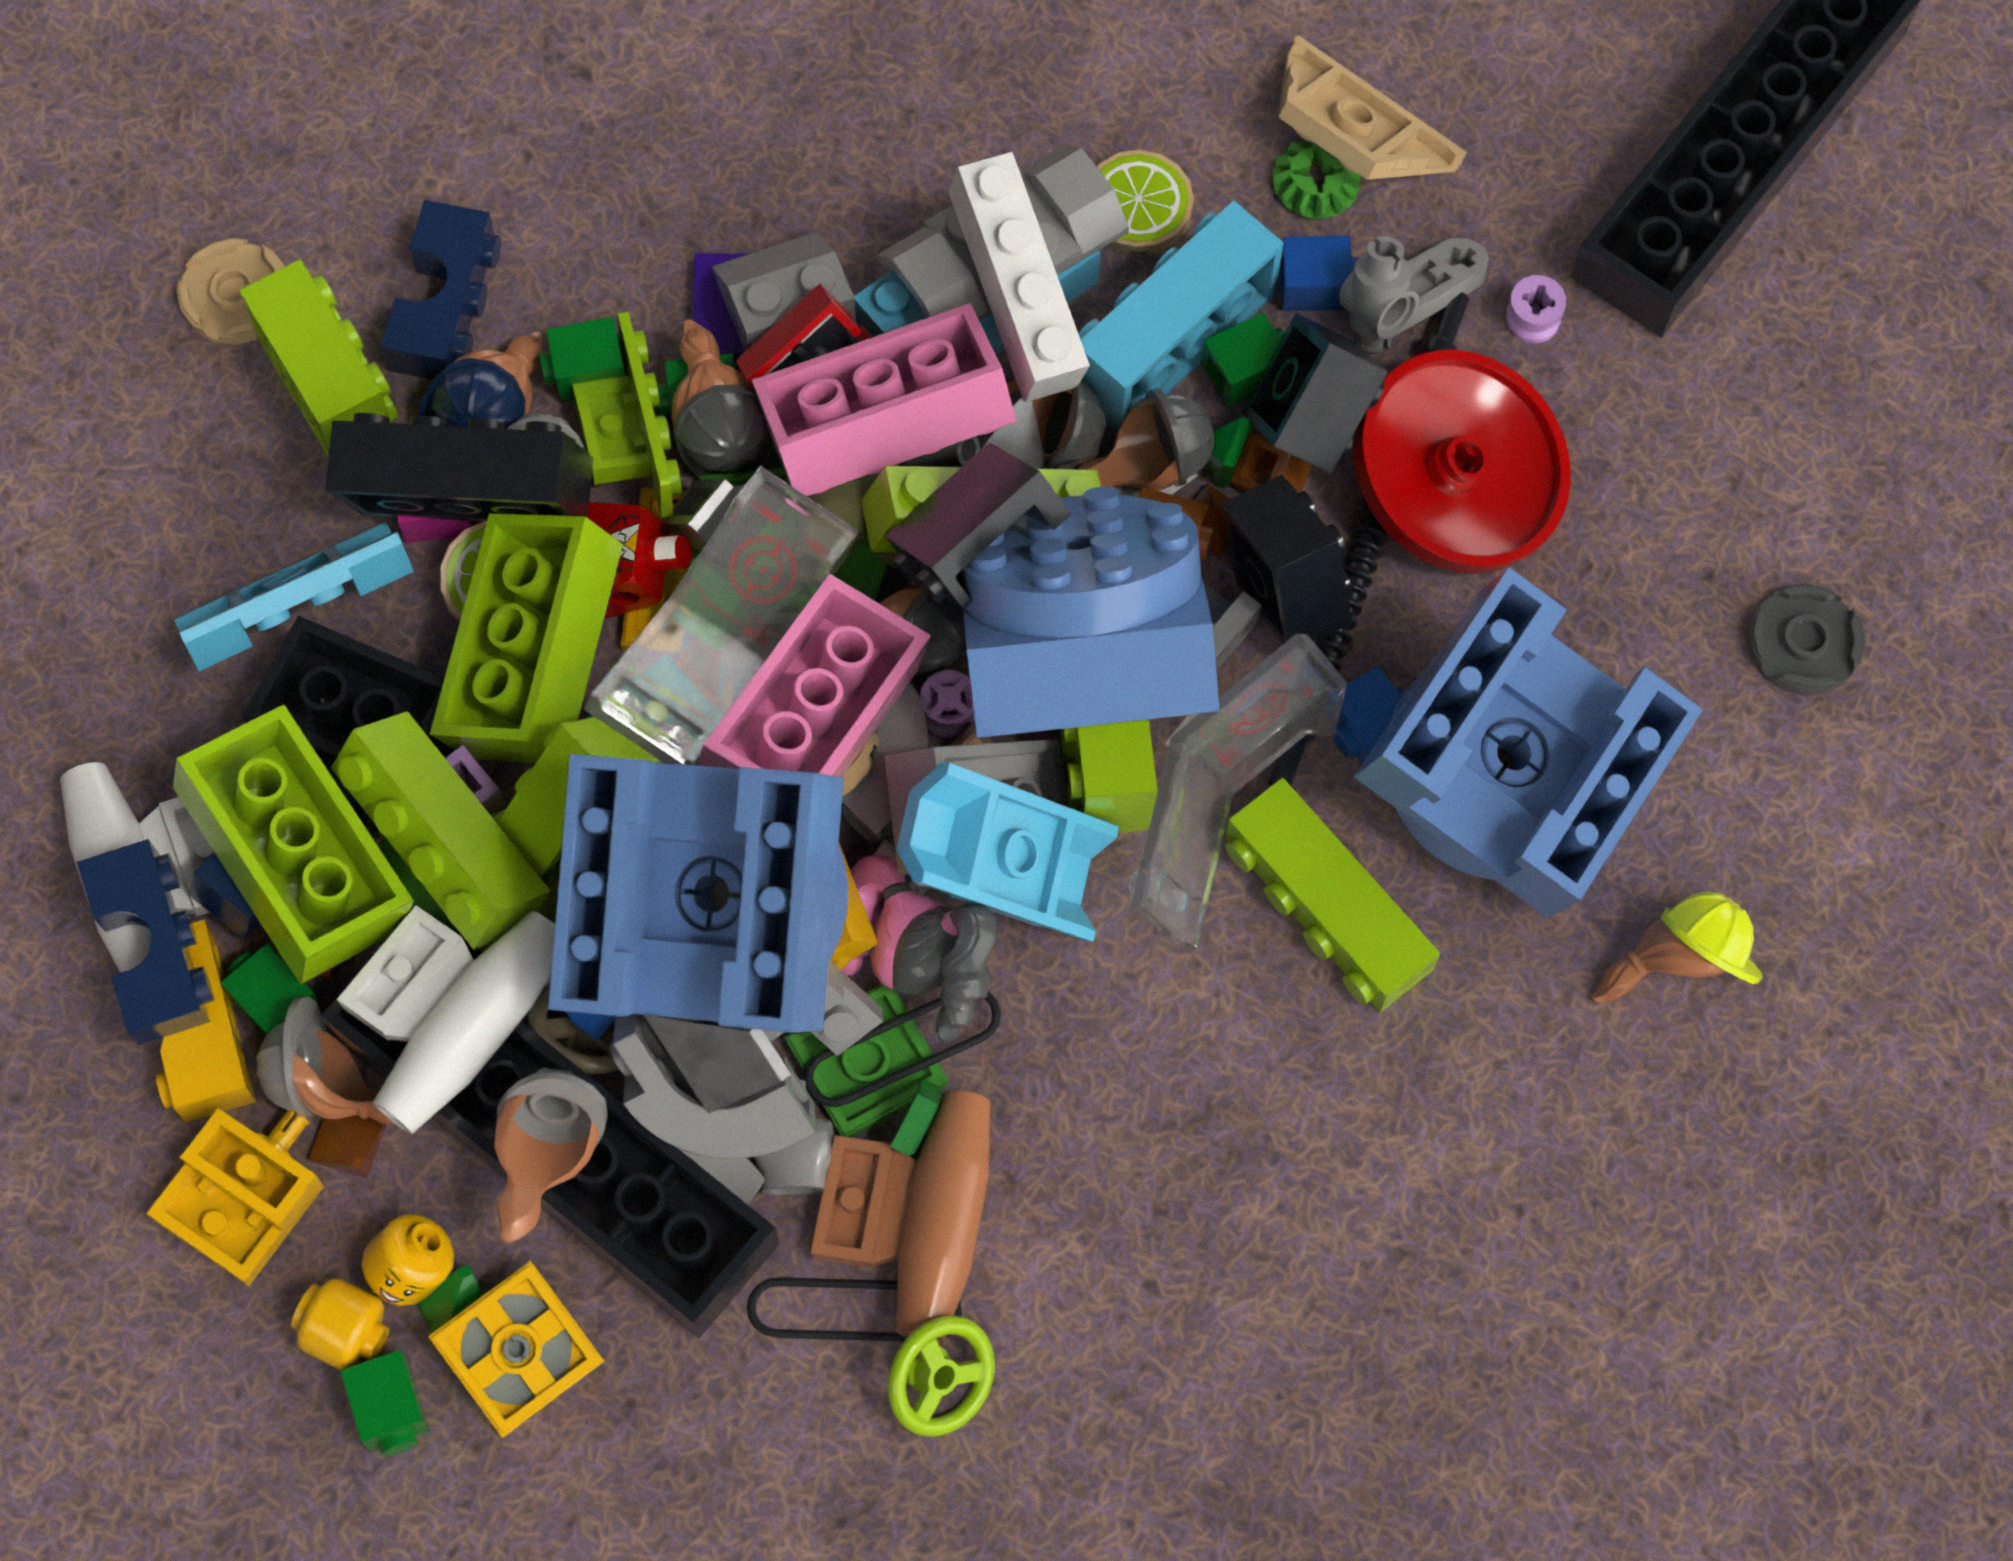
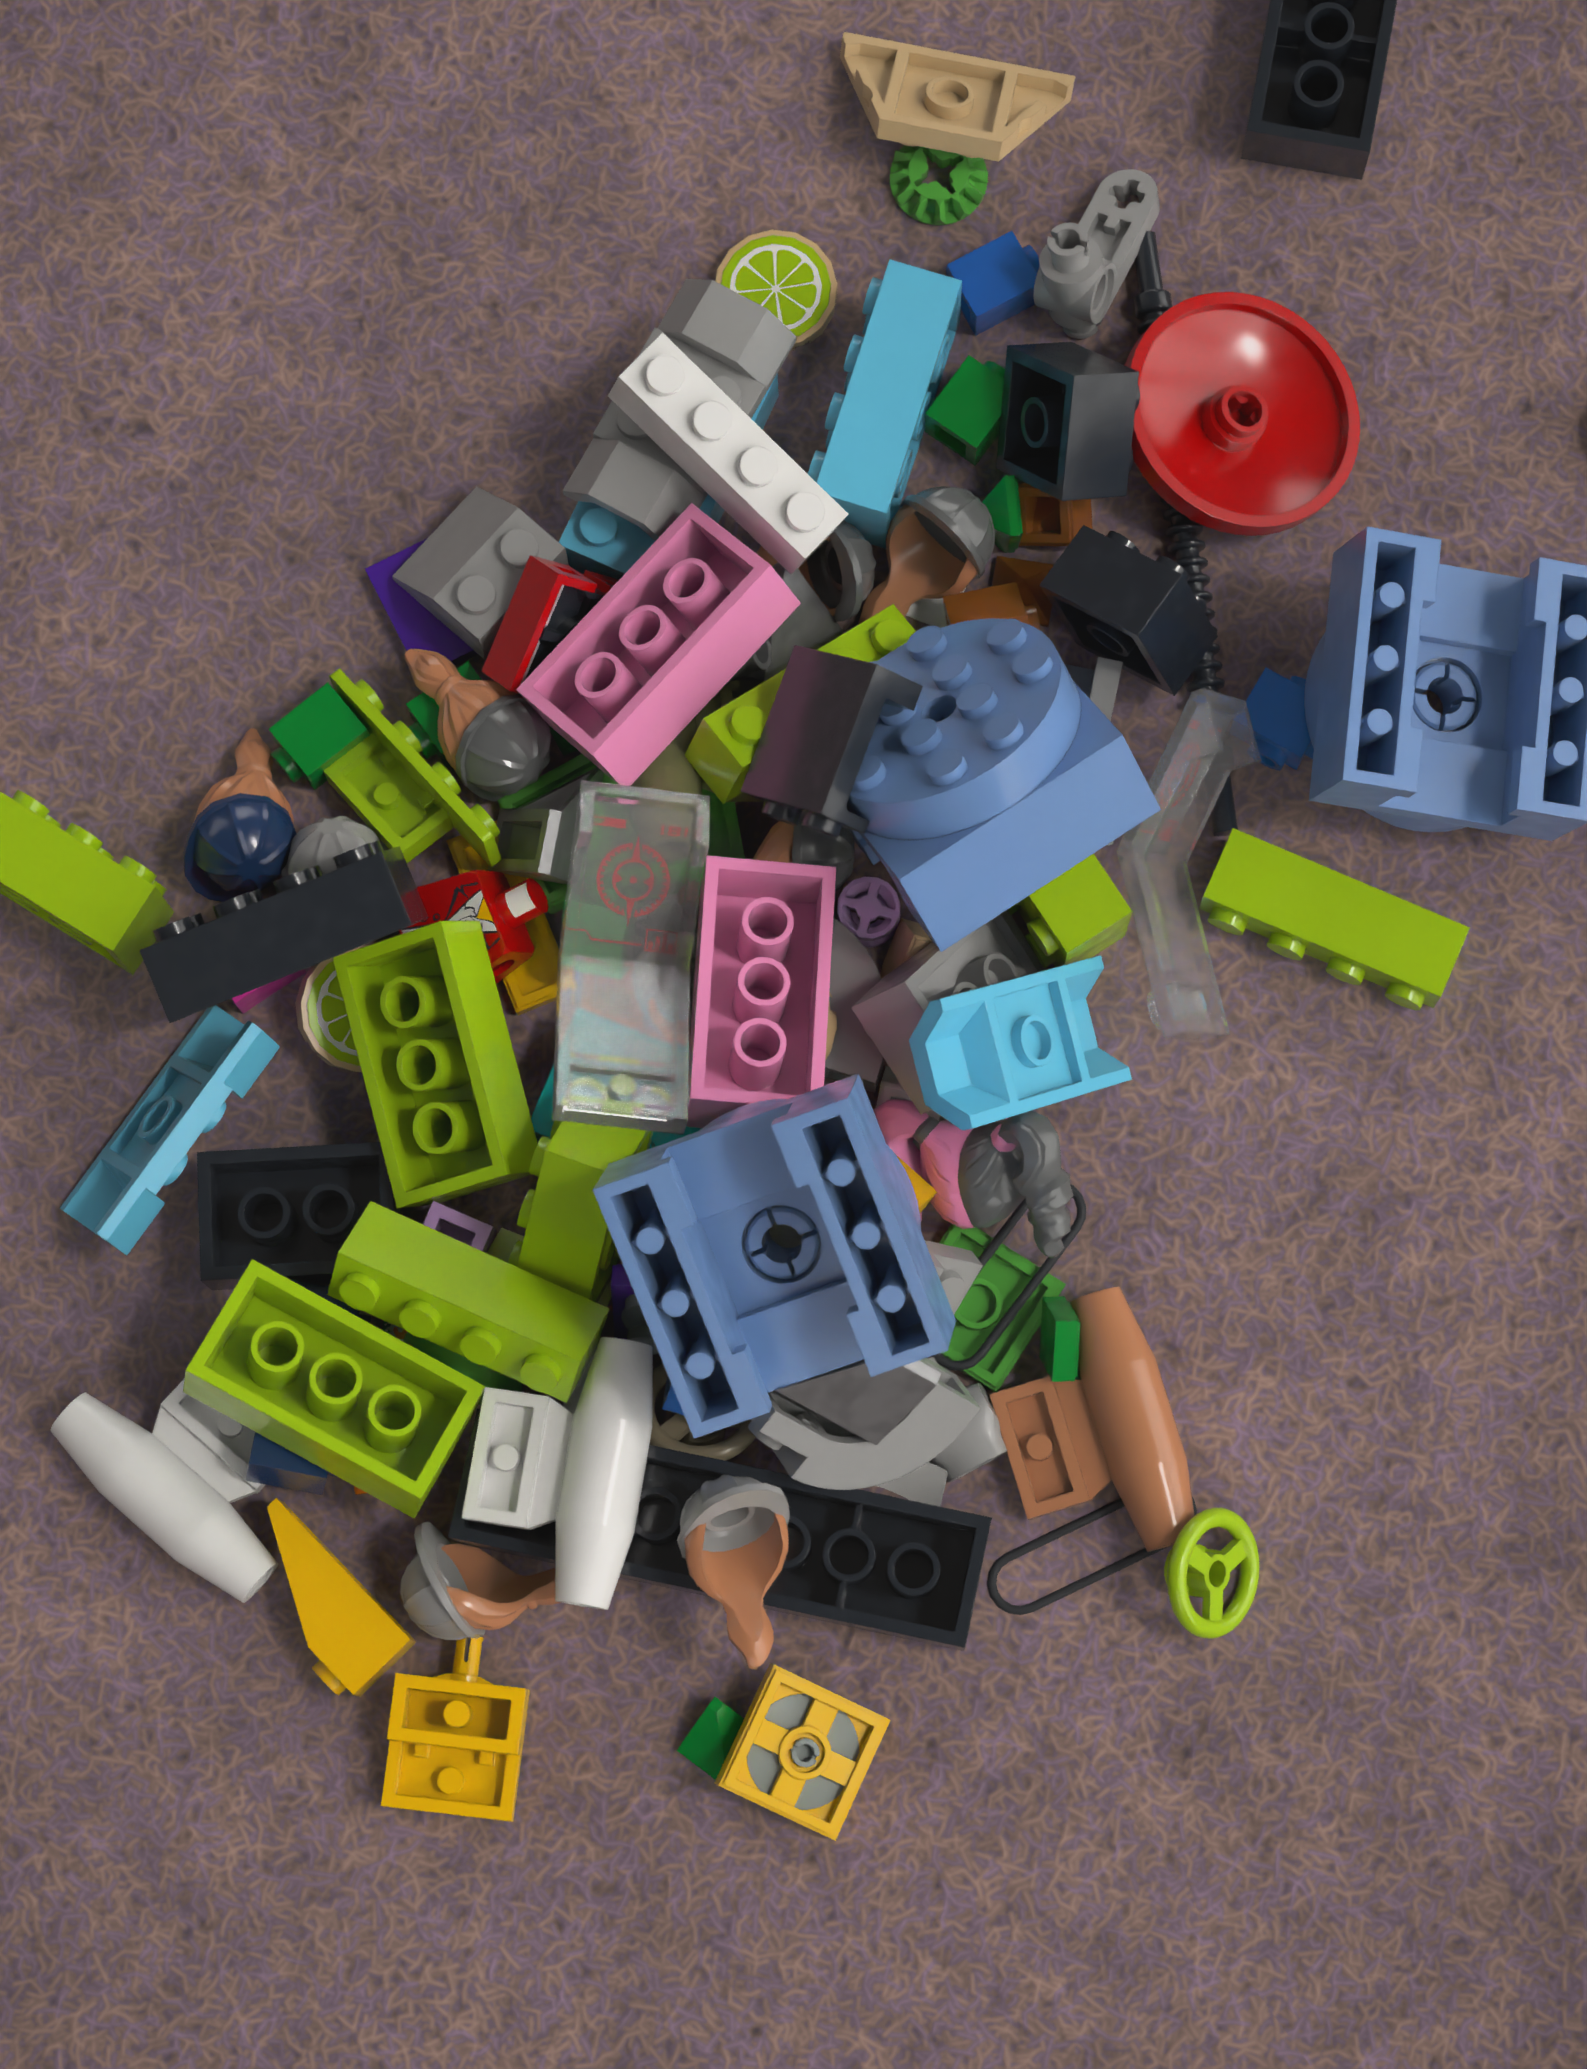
camera: 20 degrees left, 10 degrees up
(164, 989) = (287, 1587): dark blue arch -> none
(264, 987) = (372, 1533): green brick -> none
(340, 1324) = (625, 1815): yellow head -> none
(347, 1144) = (529, 1640): dark orange slope -> none
(385, 1403) = (710, 1866): green brick -> none
(408, 1260) = (655, 1722): yellow head -> none
(433, 333) = (151, 789): dark blue arch -> none
(1529, 322) = (1225, 227): lavender wheel -> none

